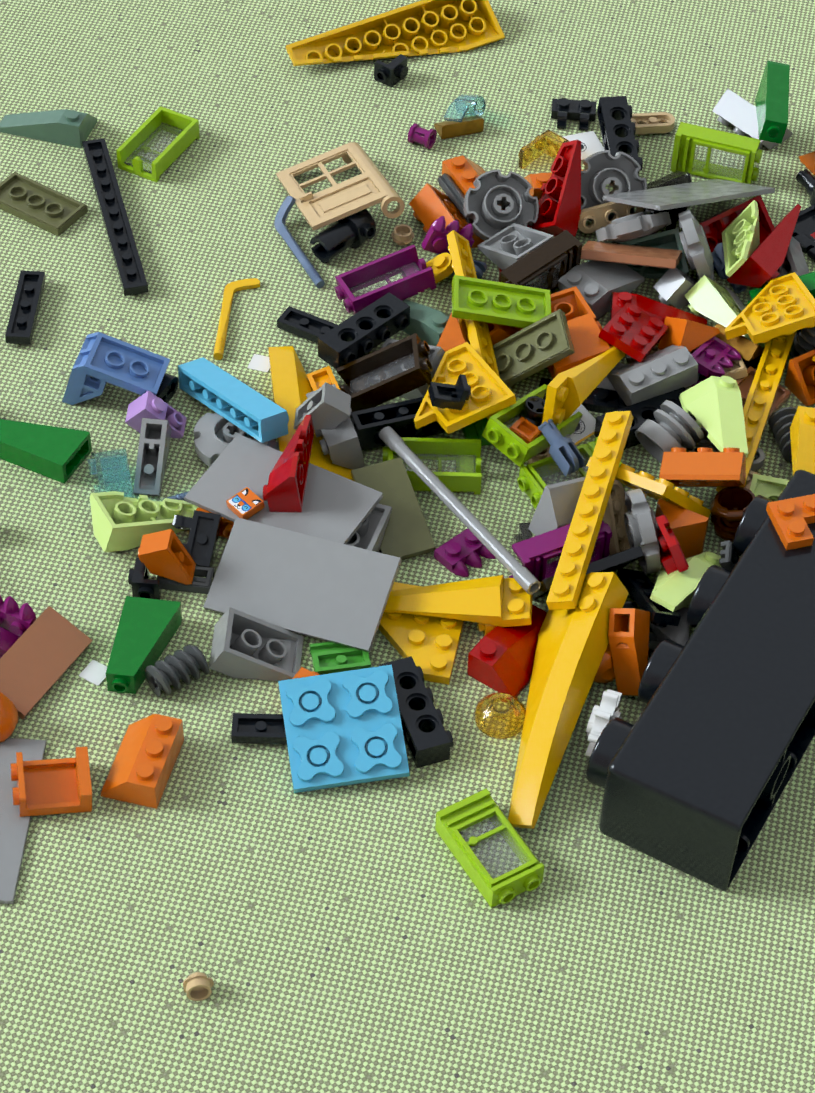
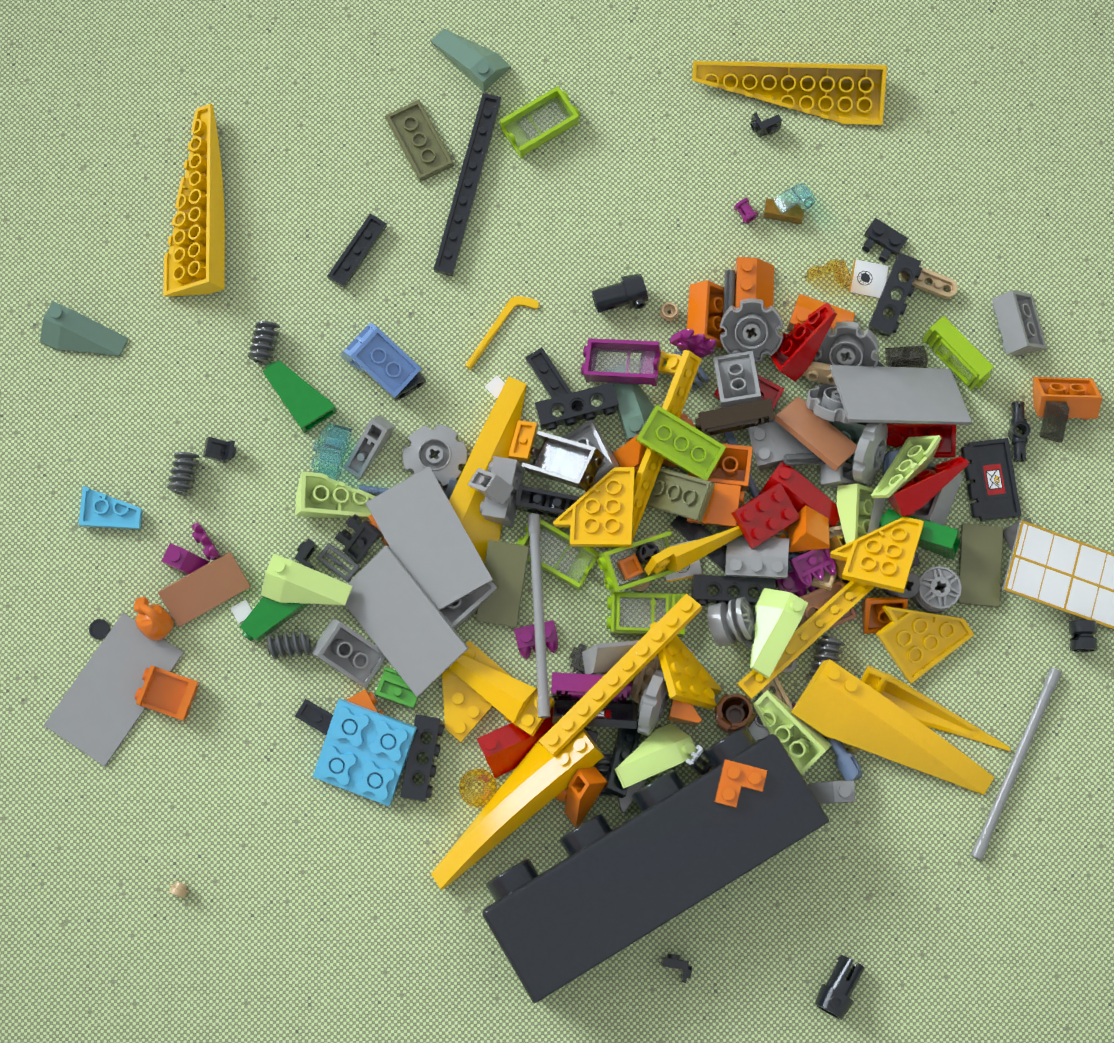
camera: 30 degrees right, 30 degrees up
(145, 761) = (232, 705): orange slope -> none
(151, 594) = (295, 583): none -> yellowish green wedge
(153, 407) = (391, 409): lavender slope -> none
(167, 556) = (325, 552): orange slope -> none
(233, 400) = (444, 430): medium azure brick -> none
(245, 504) = (398, 536): tile -> none
(282, 229) = (587, 249): sand blue piece -> none
(290, 473) = (436, 533): red wedge -> none
(340, 198) = (641, 264): tan door -> none
(449, 395) = (584, 519): black bracket -> none
(489, 848) = (405, 890): lime door -> none
(562, 449) = (642, 596): sand blue arm -> none
(601, 716) = (529, 843): white gear -> none
(639, 279) = (802, 459): none -> dark grey axle
(675, 558) = (659, 733): red plate -> none
(704, 467) = (726, 676): orange slope -> none
(773, 102) = (1026, 338): green slope -> none

